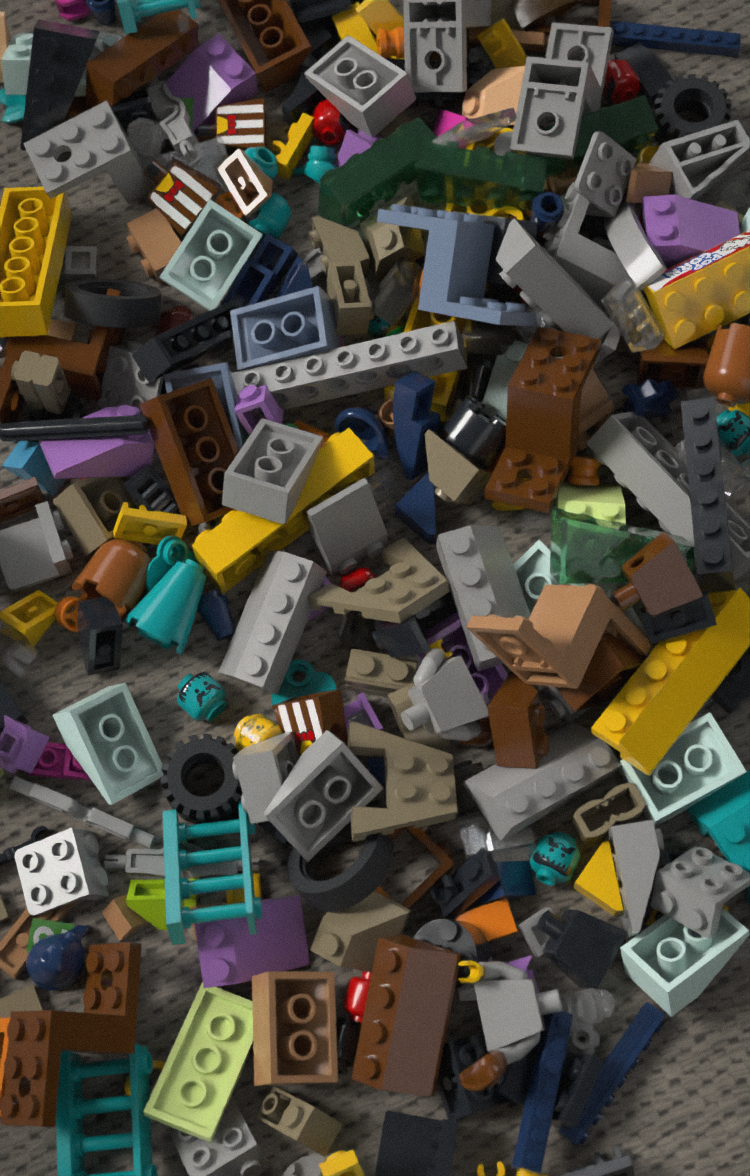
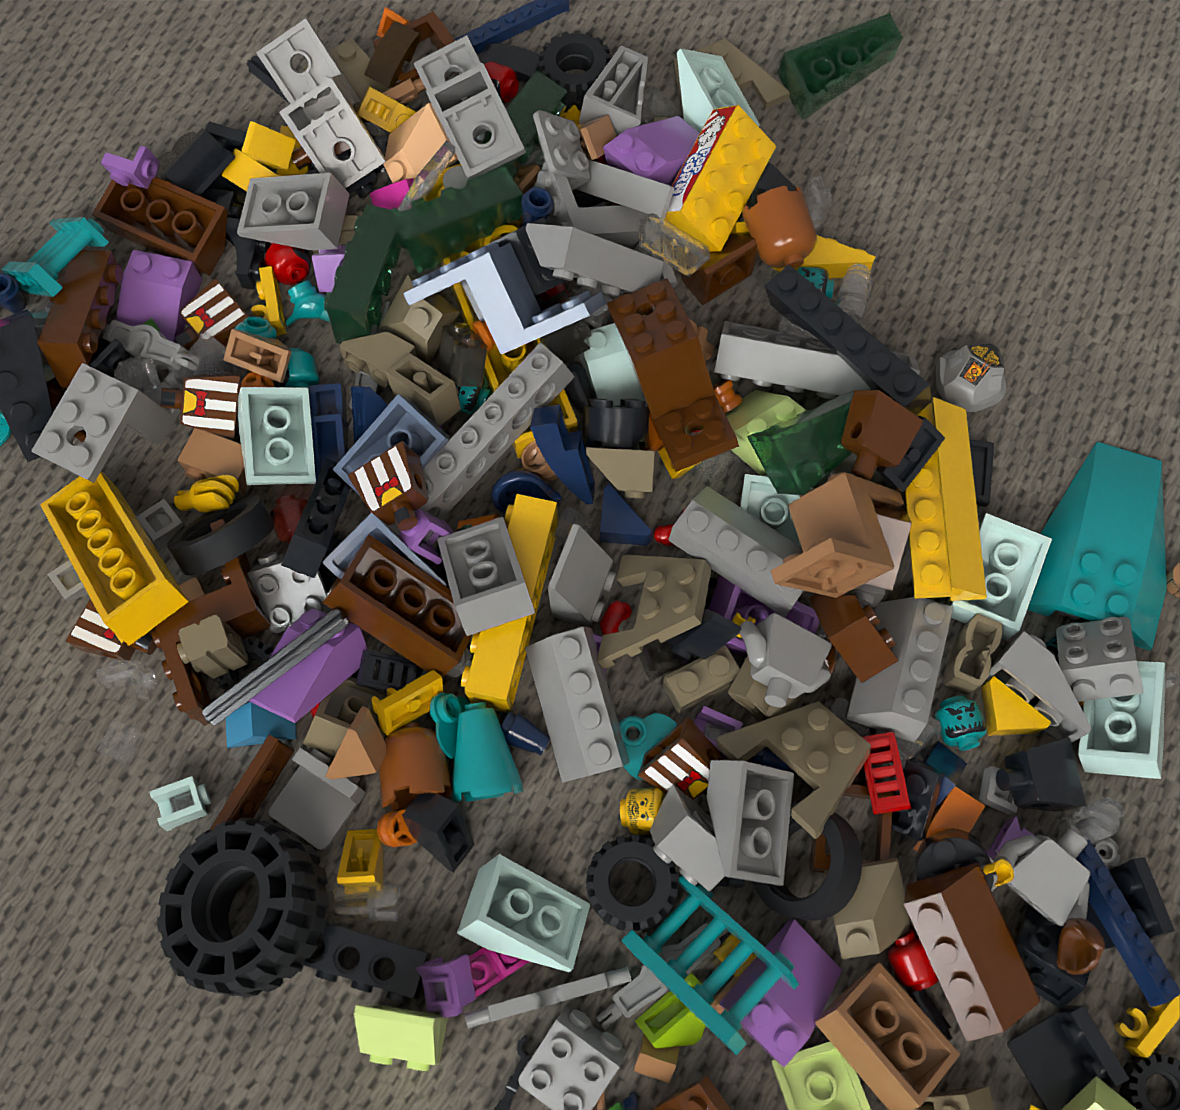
camera: 40 degrees left, 0 degrees up
(85, 530) = (360, 750): none -> medium nougat slope
(129, 266) = (208, 494): none -> yellow arm
(201, 697) = (567, 814): teal head -> none
(258, 354) = (393, 486): none -> reddish brown torso
(390, 42) = (292, 161): orange wheel -> none
(466, 824) = (885, 750): none -> red slope
(614, 1070) = (1145, 840): dark blue piece -> none
(650, 398) = (725, 307): dark blue hips -> none

